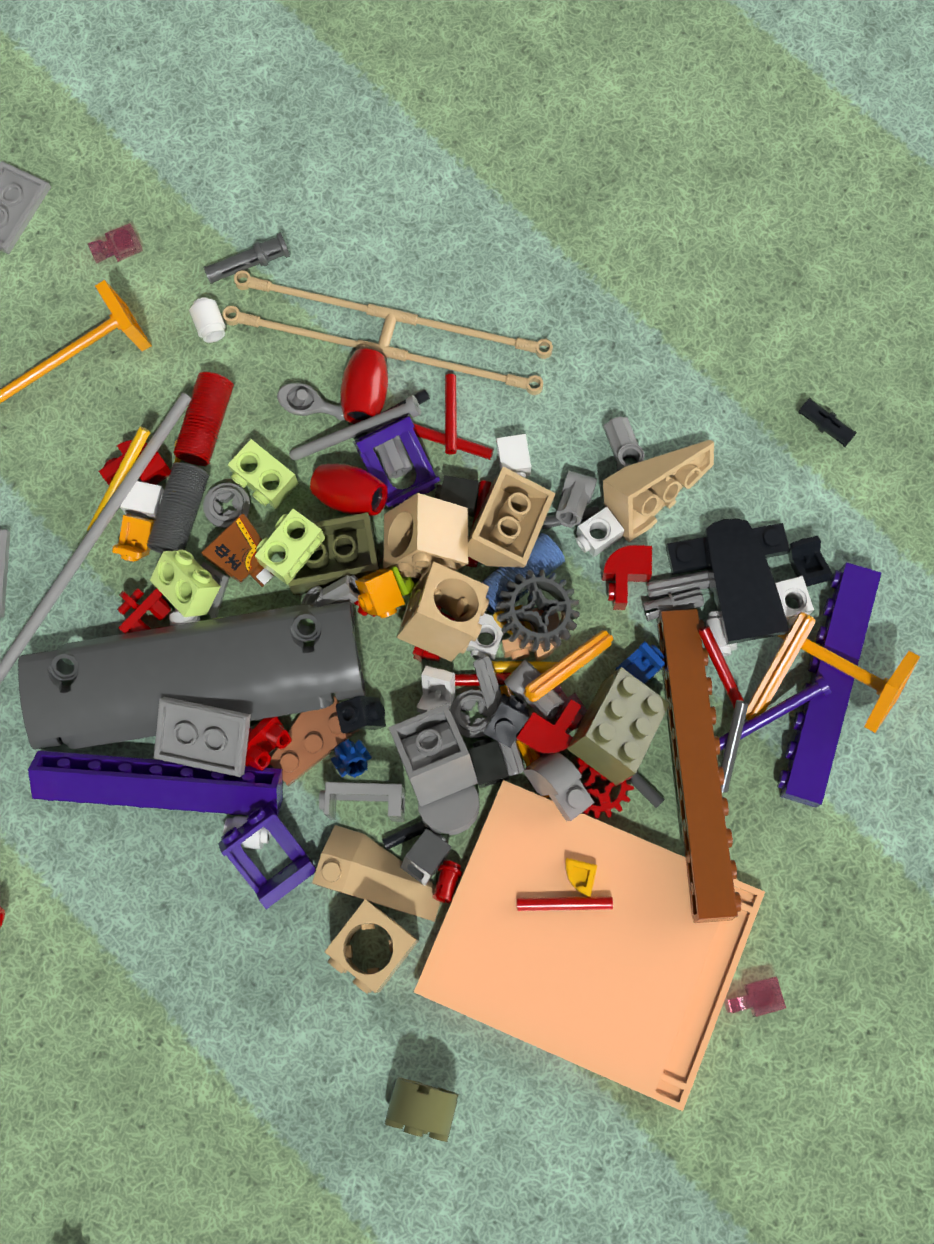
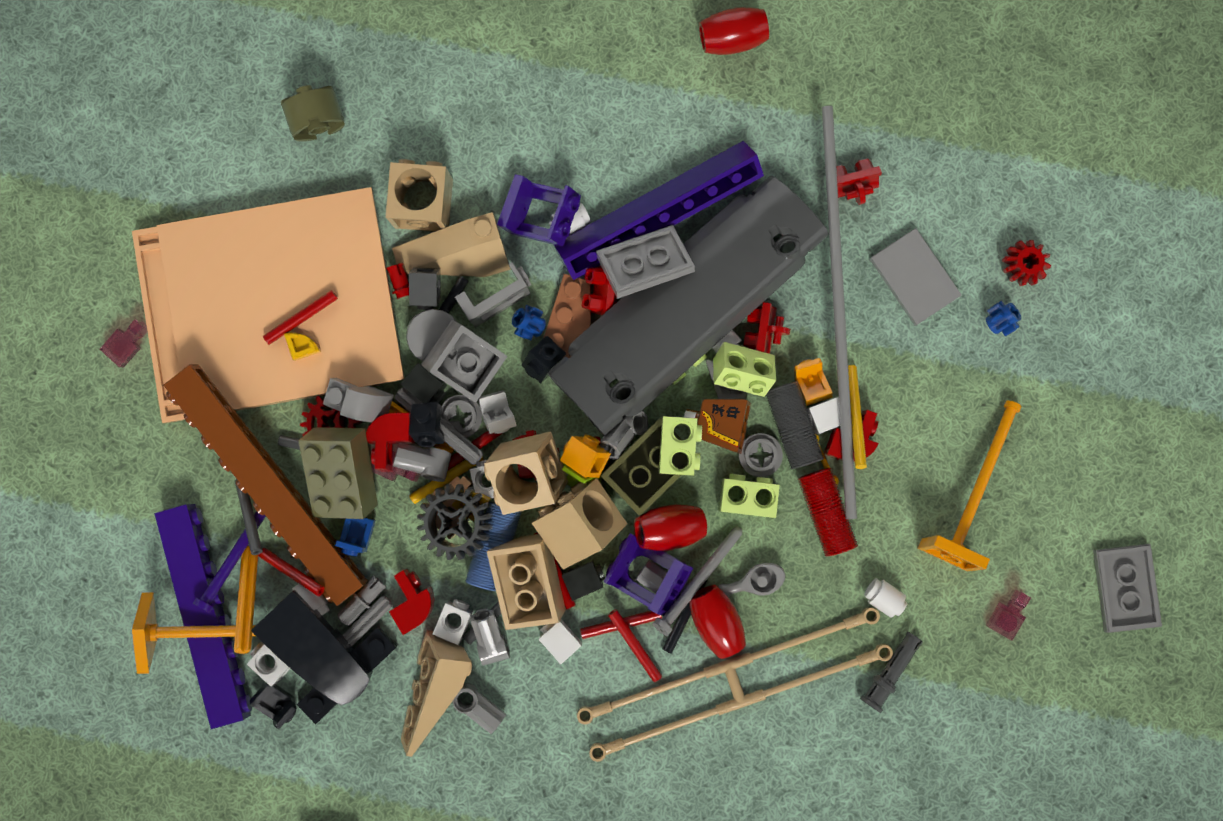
camera: 145 degrees right, 10 degrees up
(568, 666) = (407, 496): light orange axle -> none

